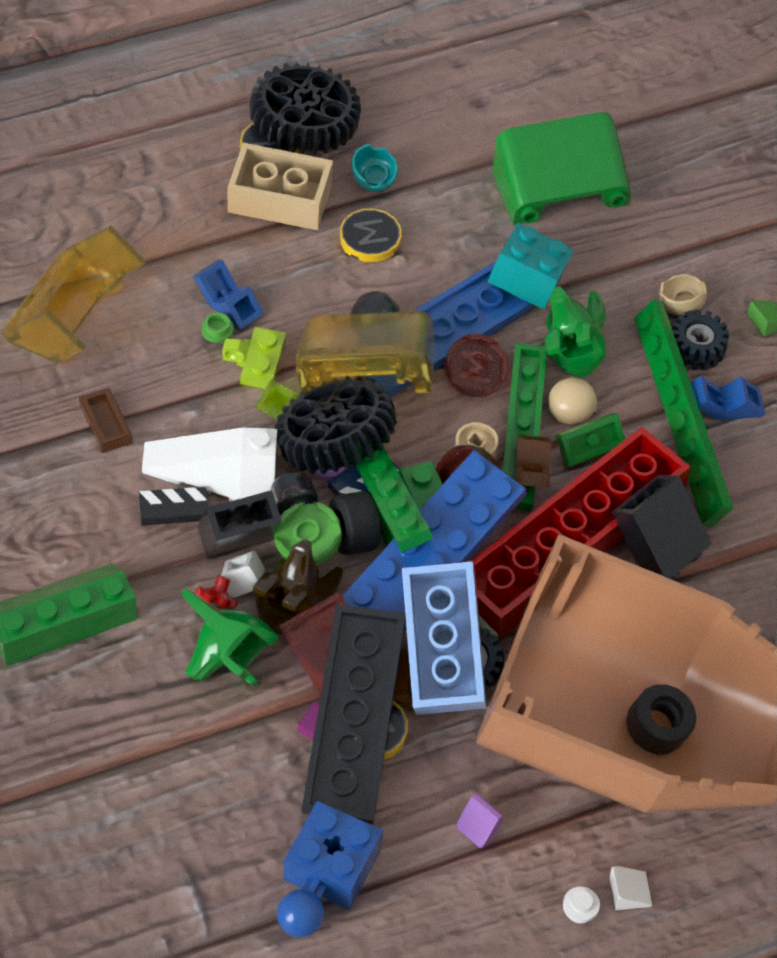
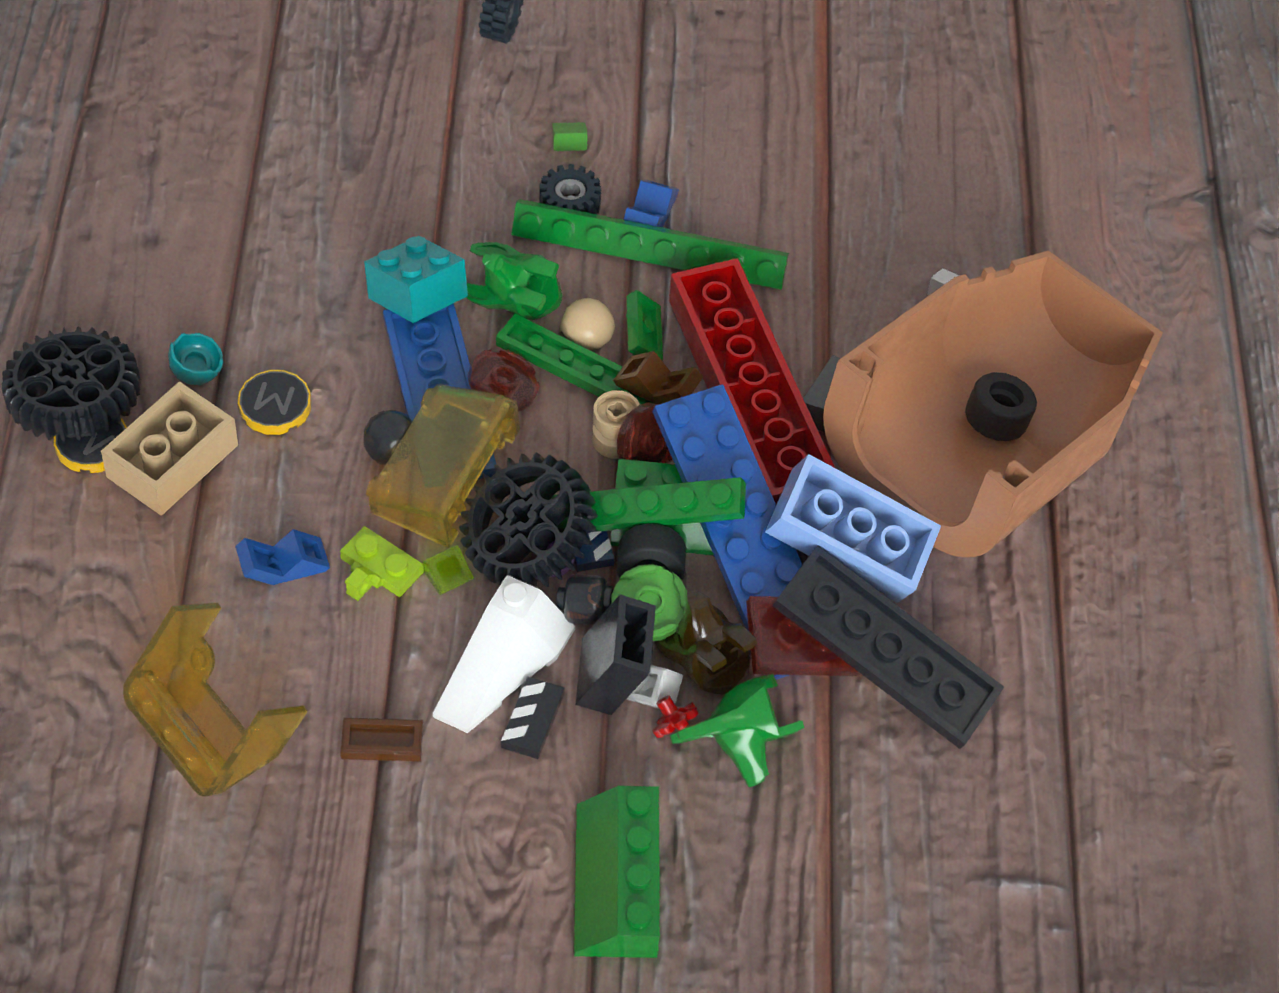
camera: 65 degrees left, 0 degrees up
(217, 327) = (319, 586): bright green plate -> none
(308, 722) = (858, 695): magenta piece -> none
(327, 862) = (1038, 736): blue brick -> none
(479, 821) = (1036, 601): medium lavender slope -> none
(559, 163) = (300, 207): green windscreen -> none
(581, 904) = (1154, 560): white plate -> none
(629, 888) = (1151, 518): white slope -> none
(662, 526) = (792, 311): black brick -> none
(683, 294) = (513, 181): tan hair -> none

